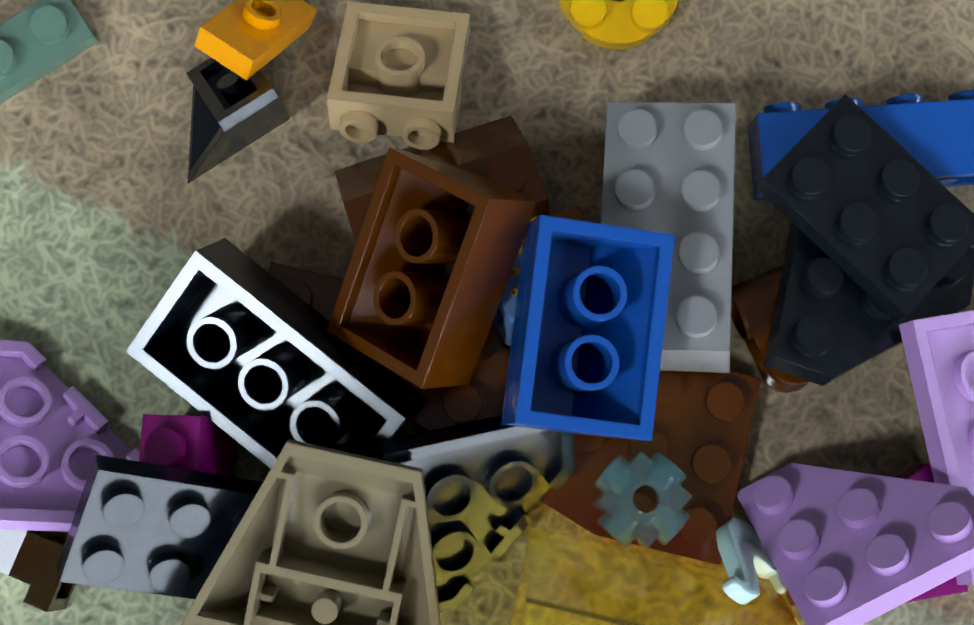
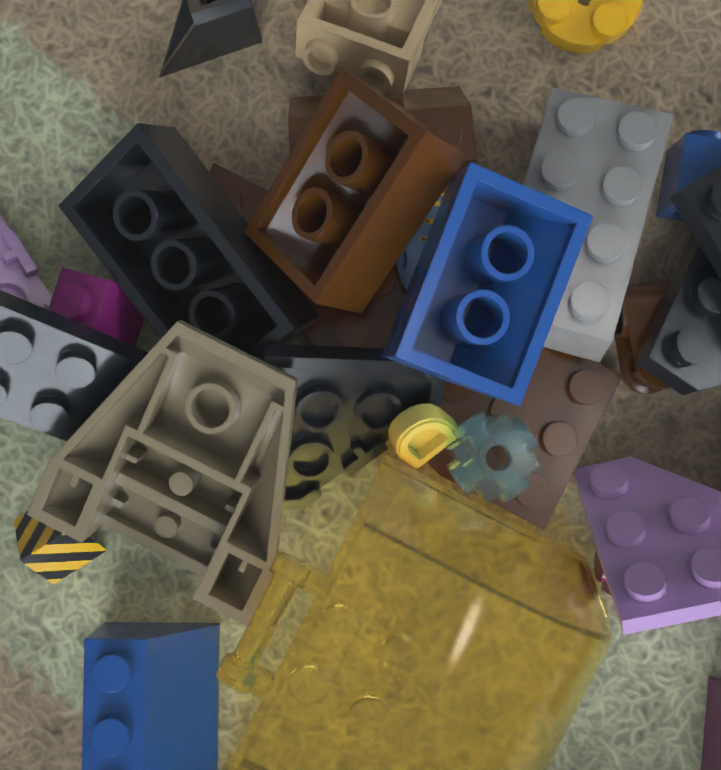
camera: 15 degrees right, 5 degrees up
(563, 494) = (421, 433): none -> light yellow tile
(744, 560) = (569, 535): light aqua piece -> none

